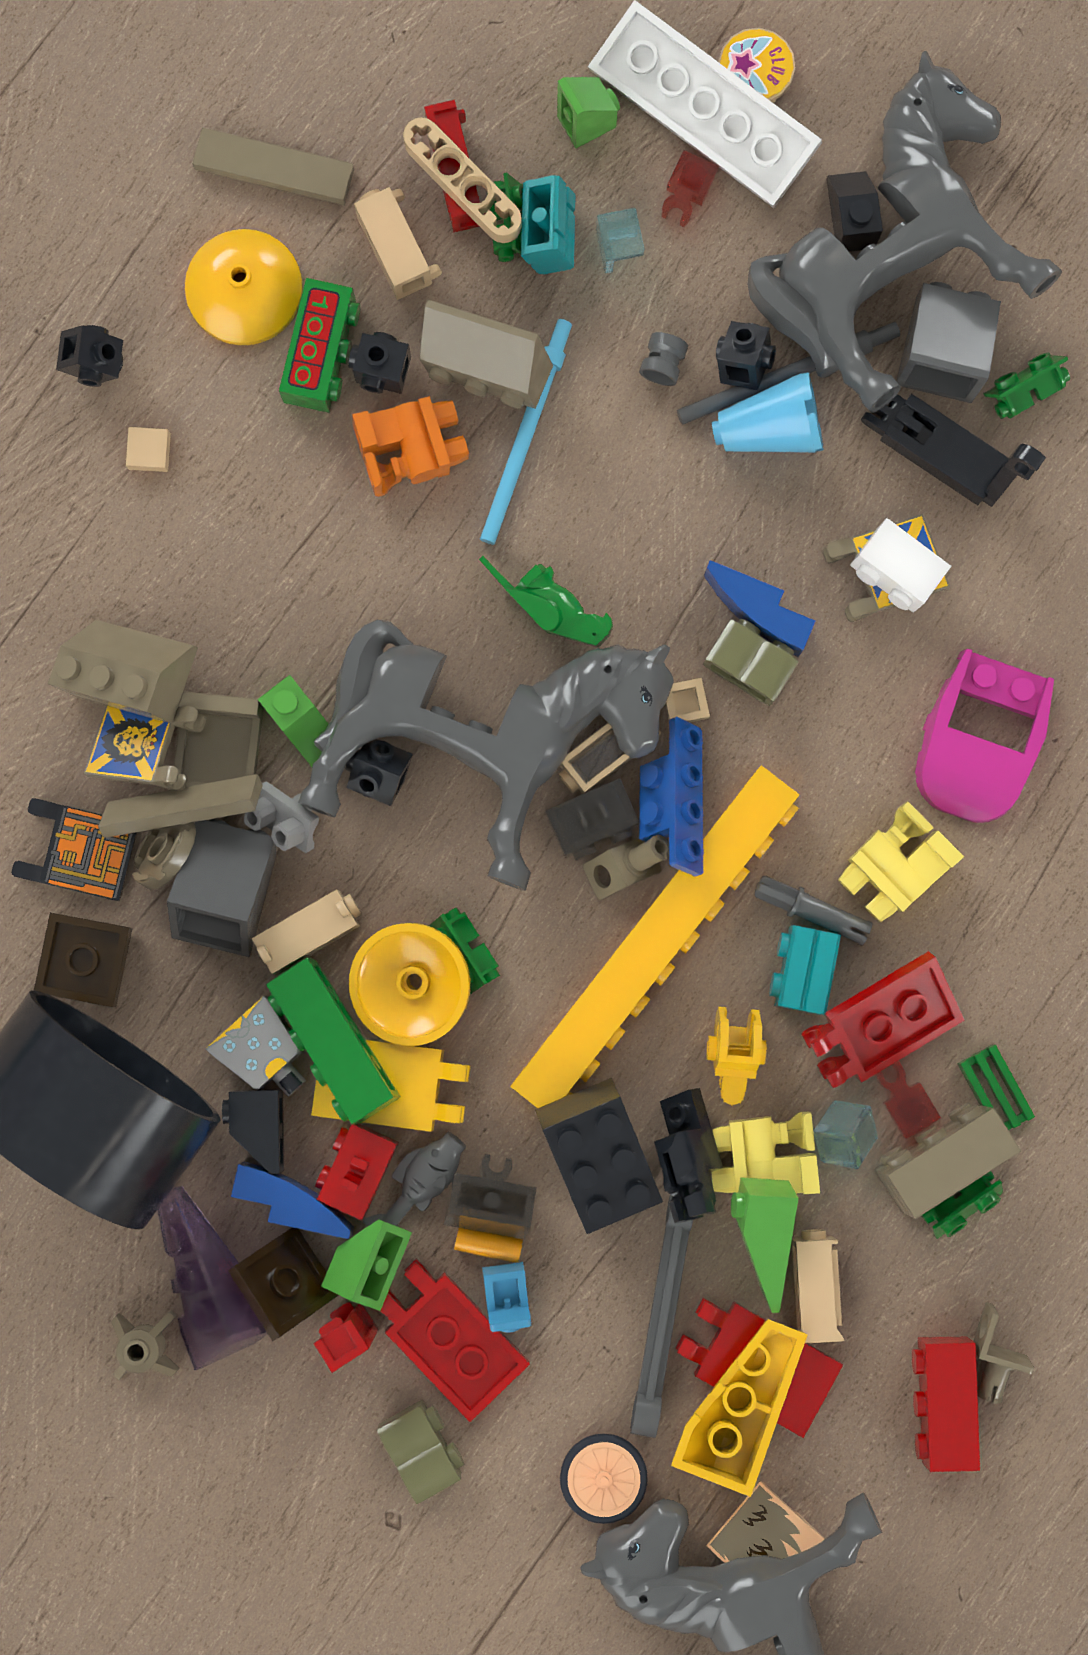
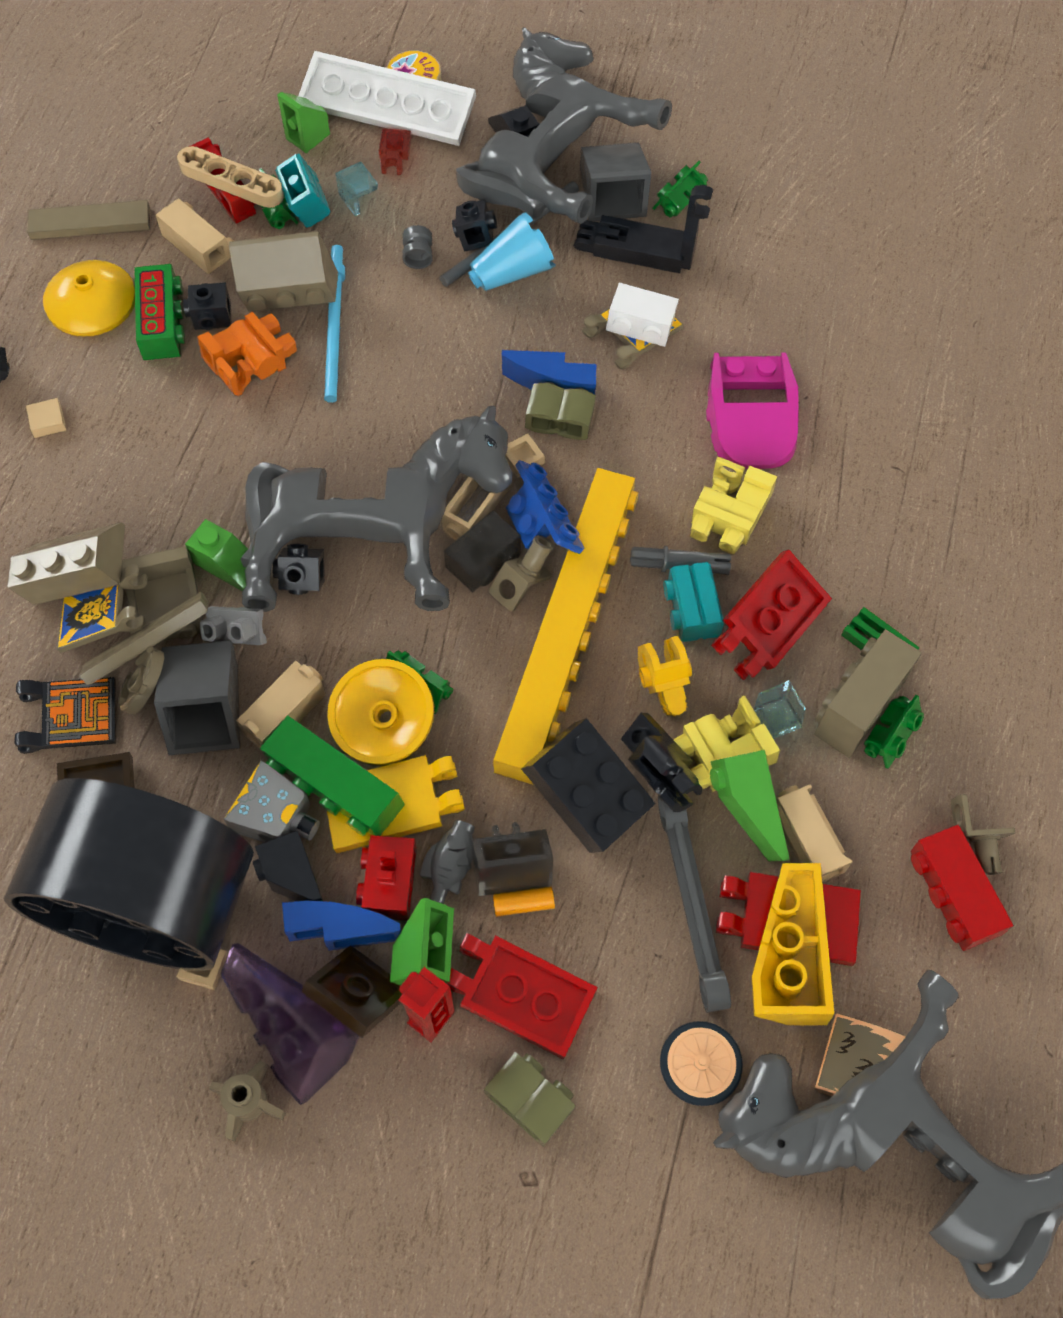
camera: 20 degrees left, 20 degrees down
(506, 1297) = (555, 935): dark azure bracket -> none
(554, 606) = (394, 420): green animal -> none
(910, 1105) = (818, 673): clear red plate -> none

